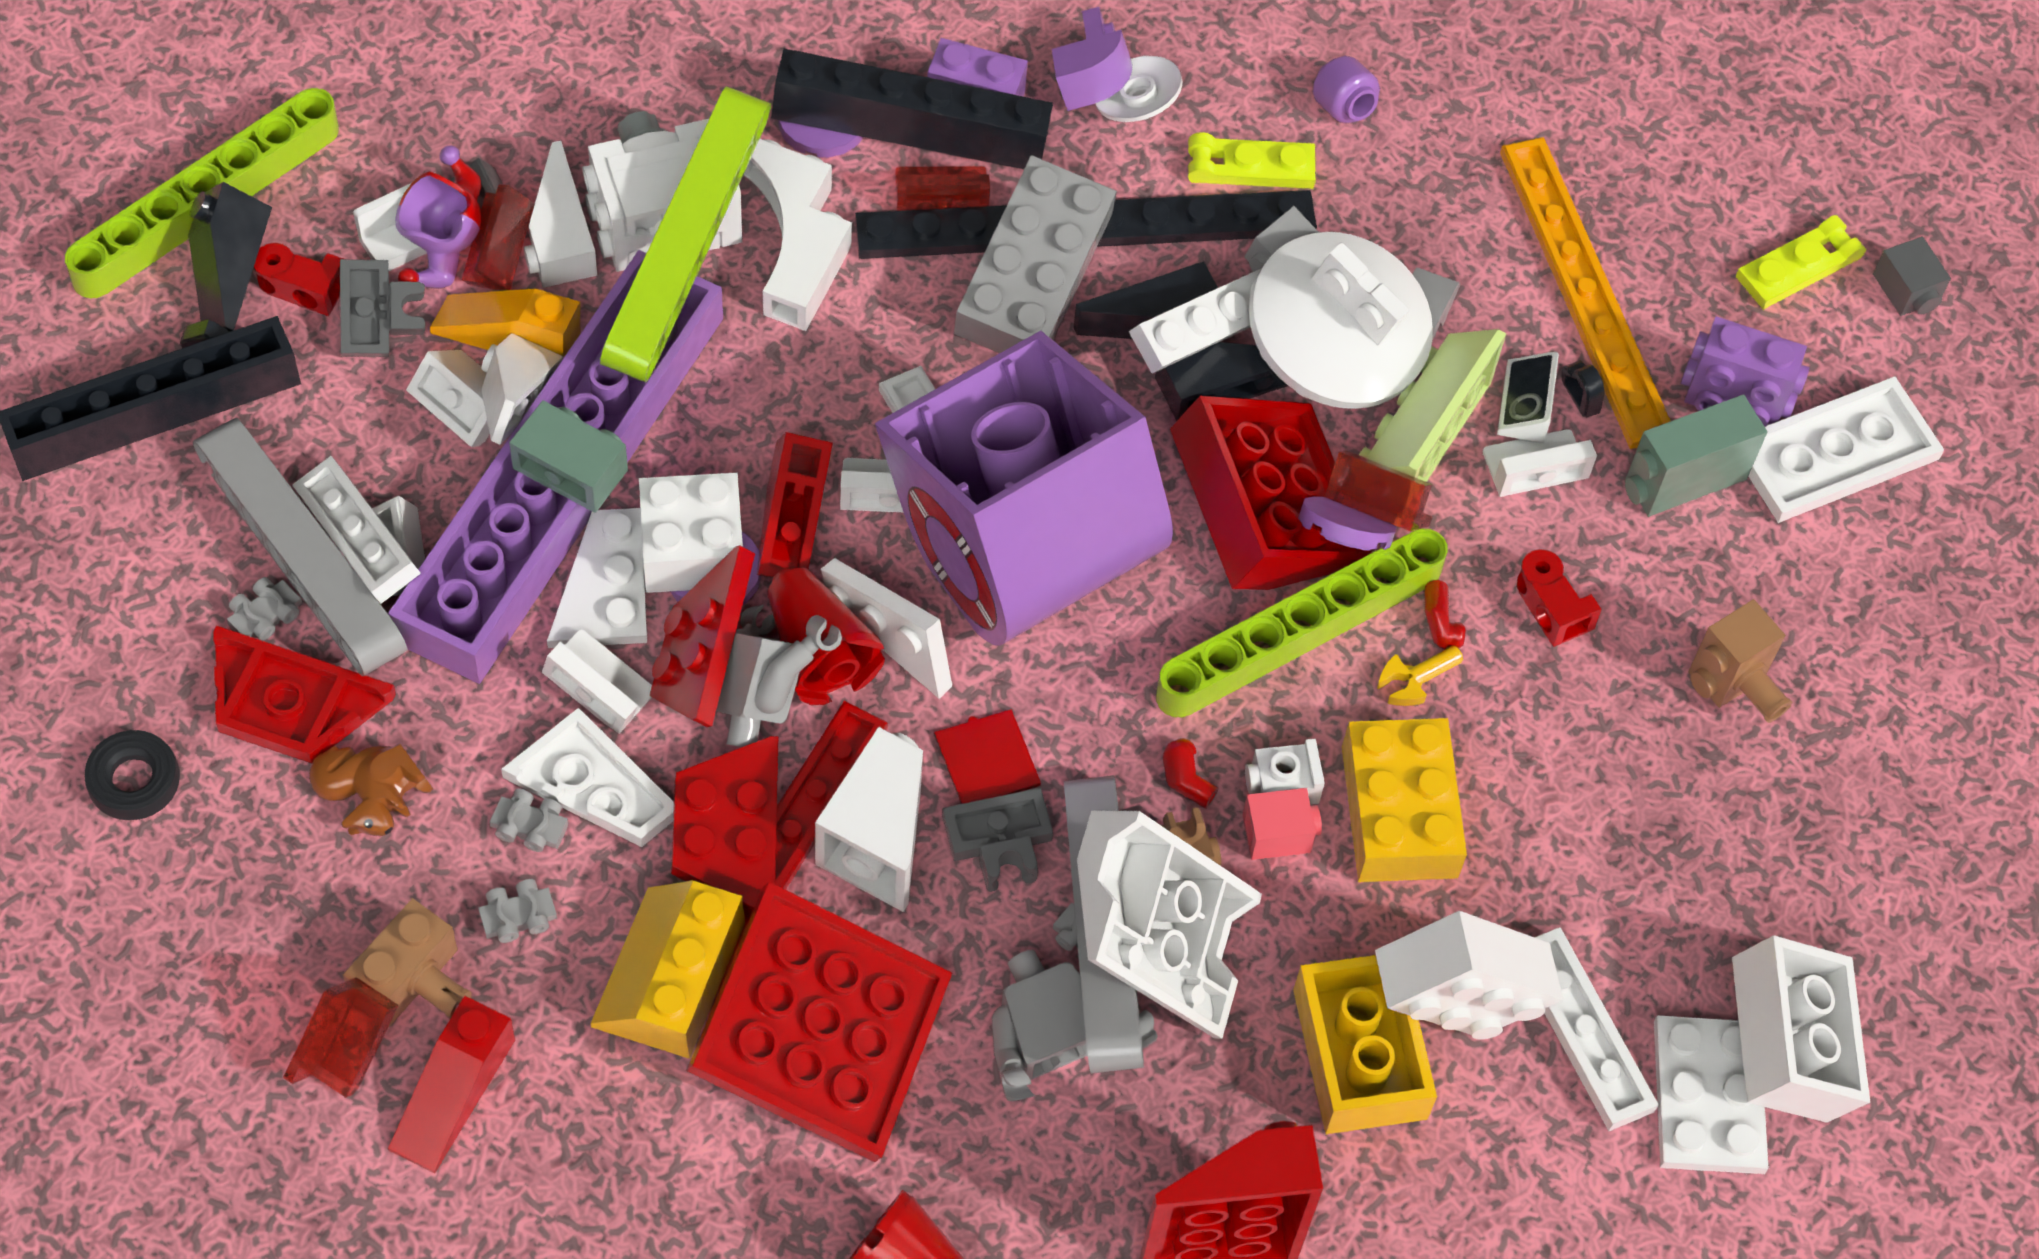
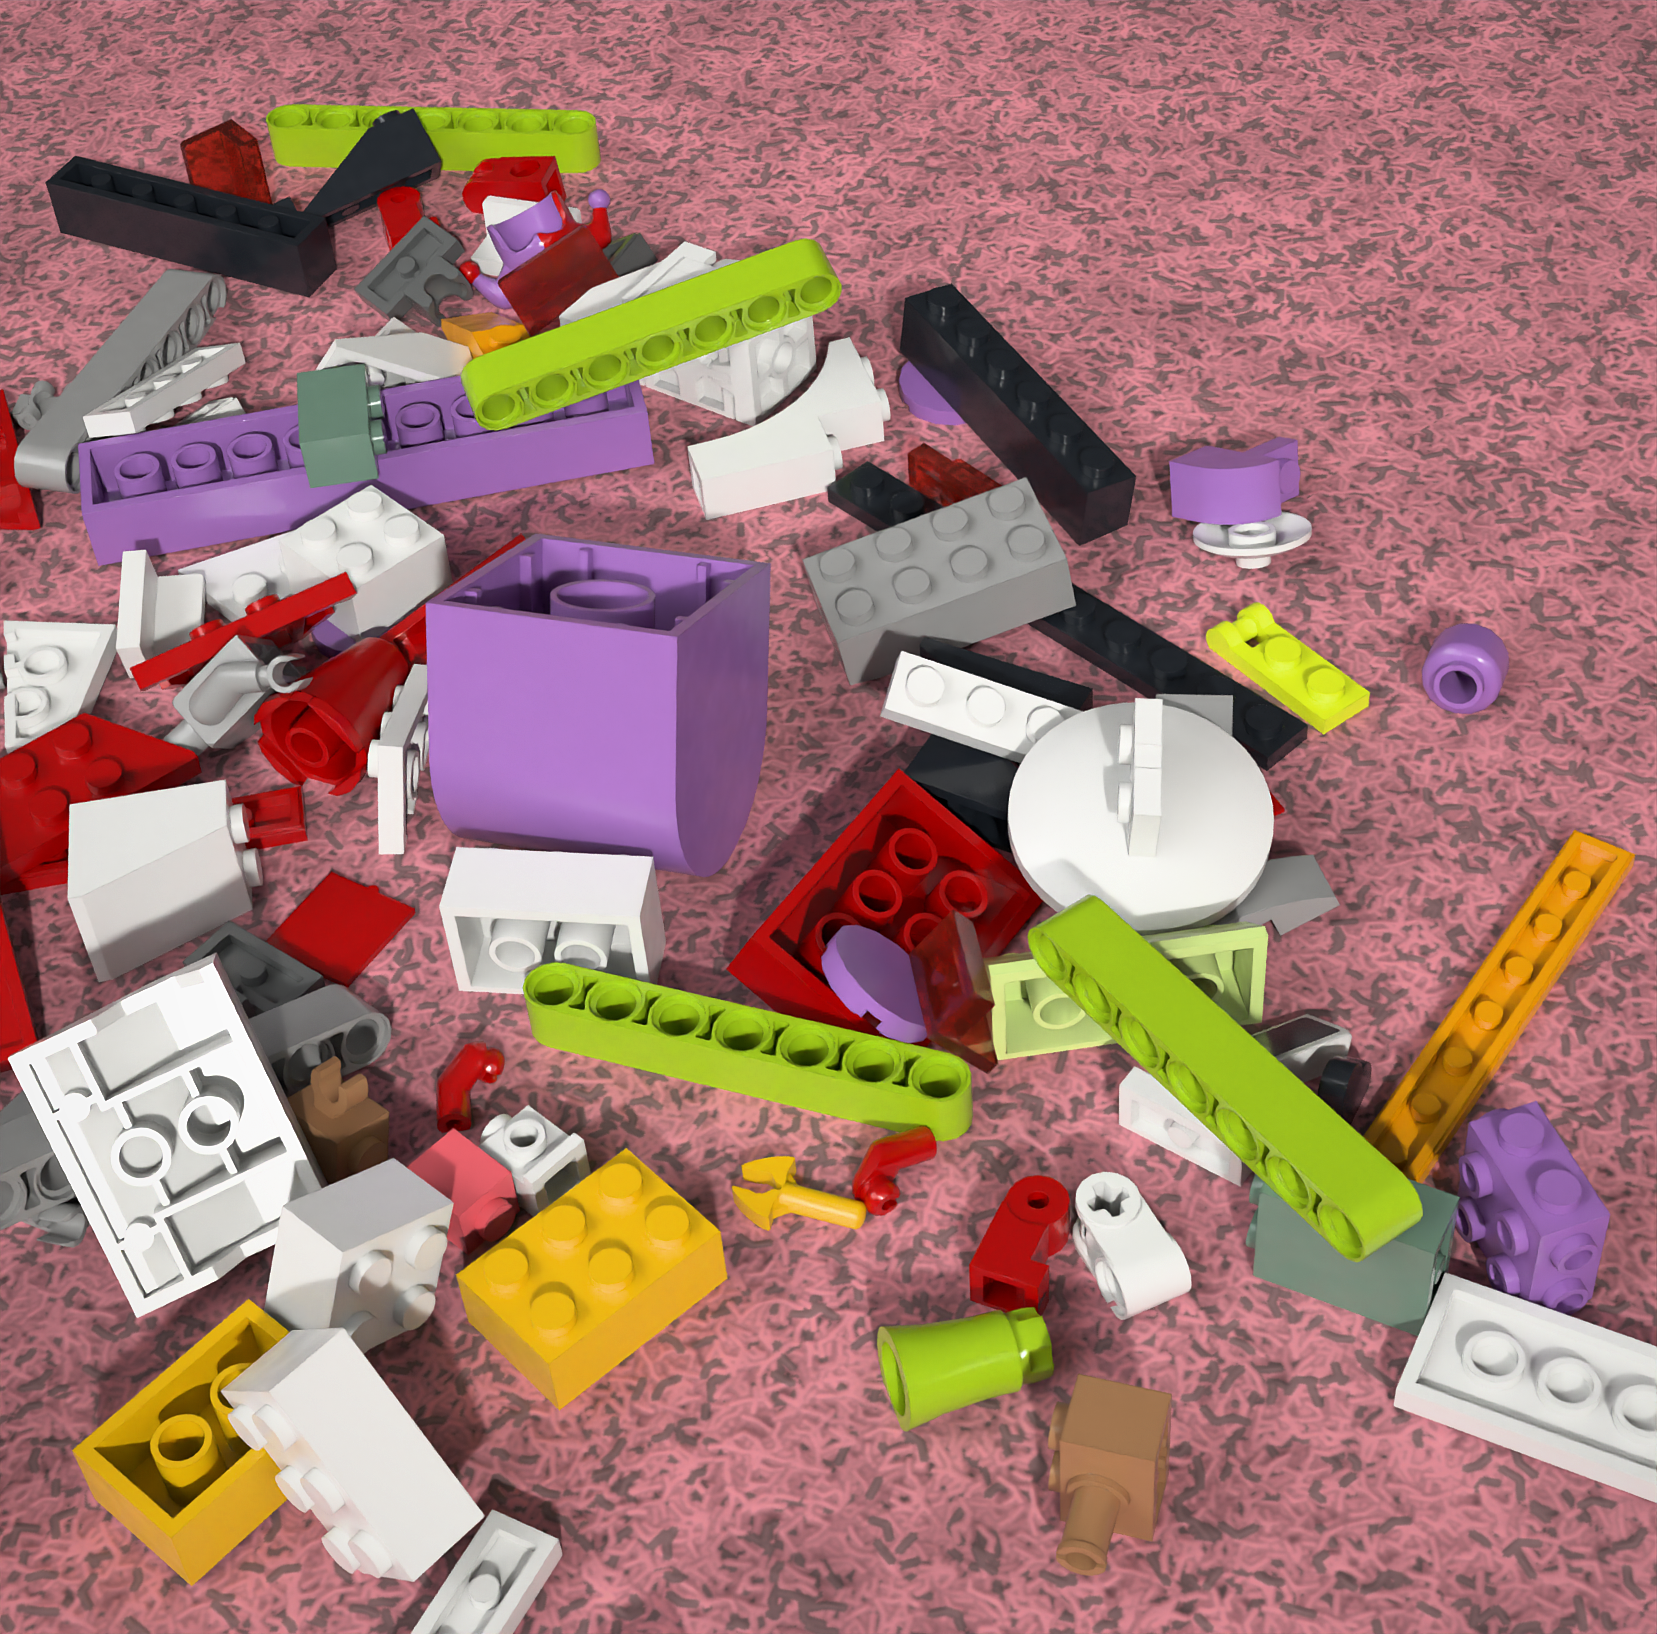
camera: 60 degrees right, 15 degrees down
(131, 329) = (226, 161): none -> clear red panel
(326, 186) = (513, 178): none -> red leg
(978, 68) = (1118, 422): medium lavender brick -> none
(1131, 641) = (542, 907): none -> white brick
(1322, 894) = (360, 1255): none -> white brick
(1591, 425) = (1227, 1079): none -> lime beam
(1599, 554) = (1126, 1246): none -> white piece
(1605, 679) = (961, 1362): none -> lime plant

